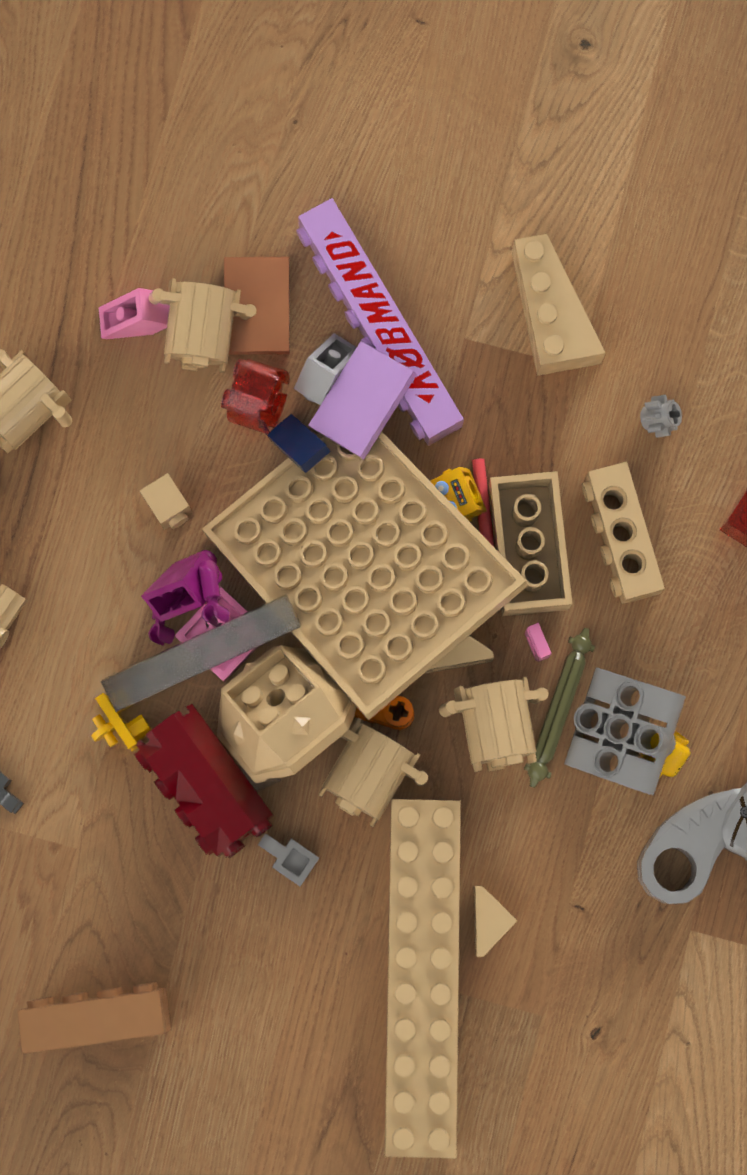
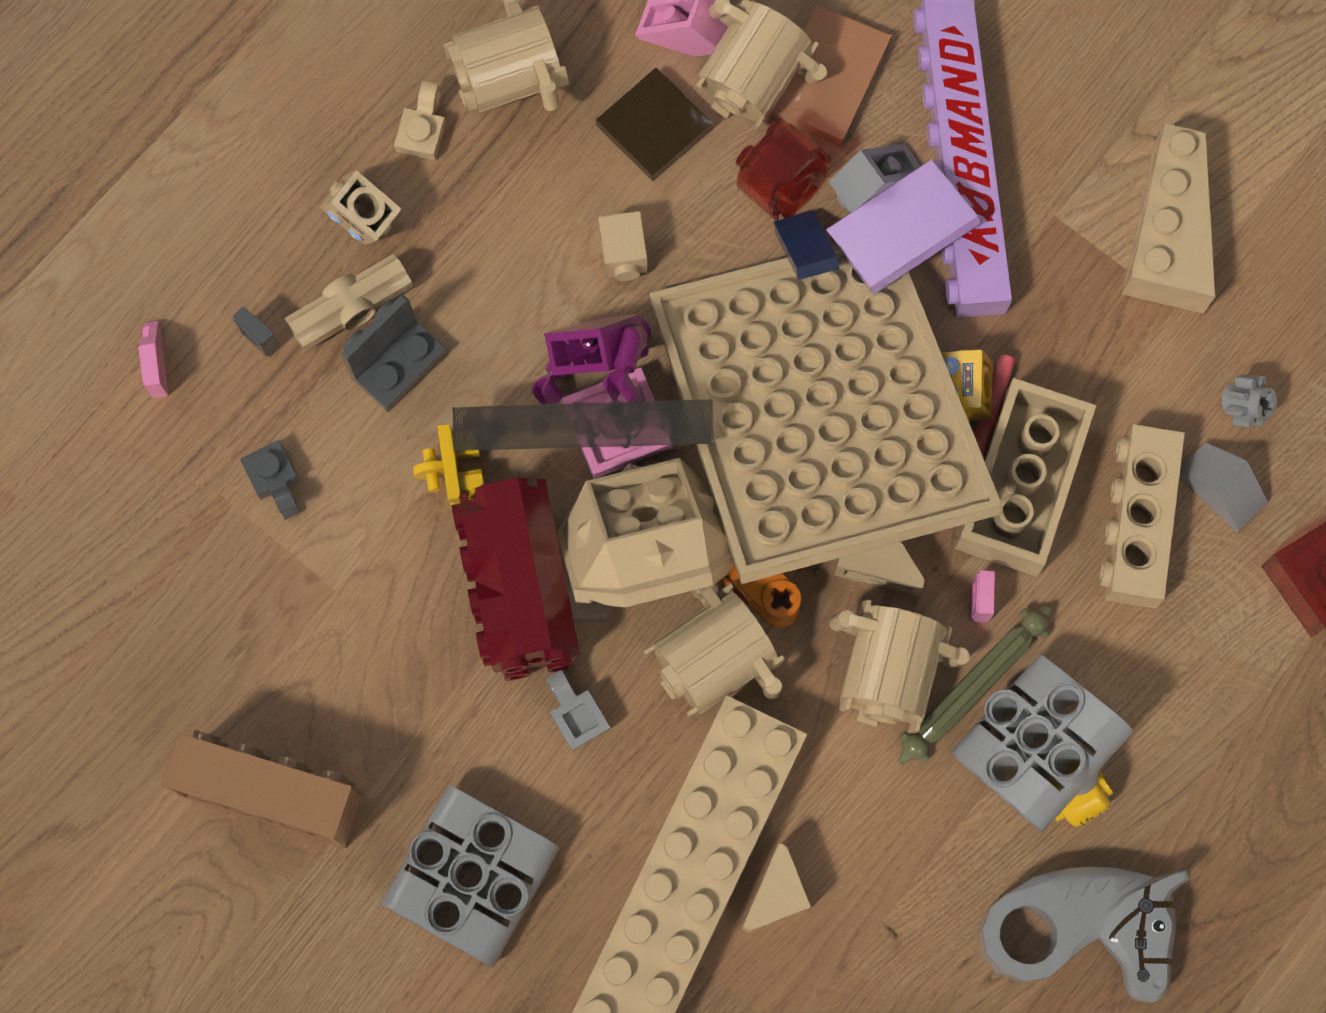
camera: 25 degrees right, 5 degrees down
(37, 659) = (391, 353): none -> dark grey bracket
(146, 399) = (654, 124): none -> dark brown tile
(292, 1047) = (520, 850): none -> light grey connector
(669, 484) = (1224, 484): none -> light grey slope

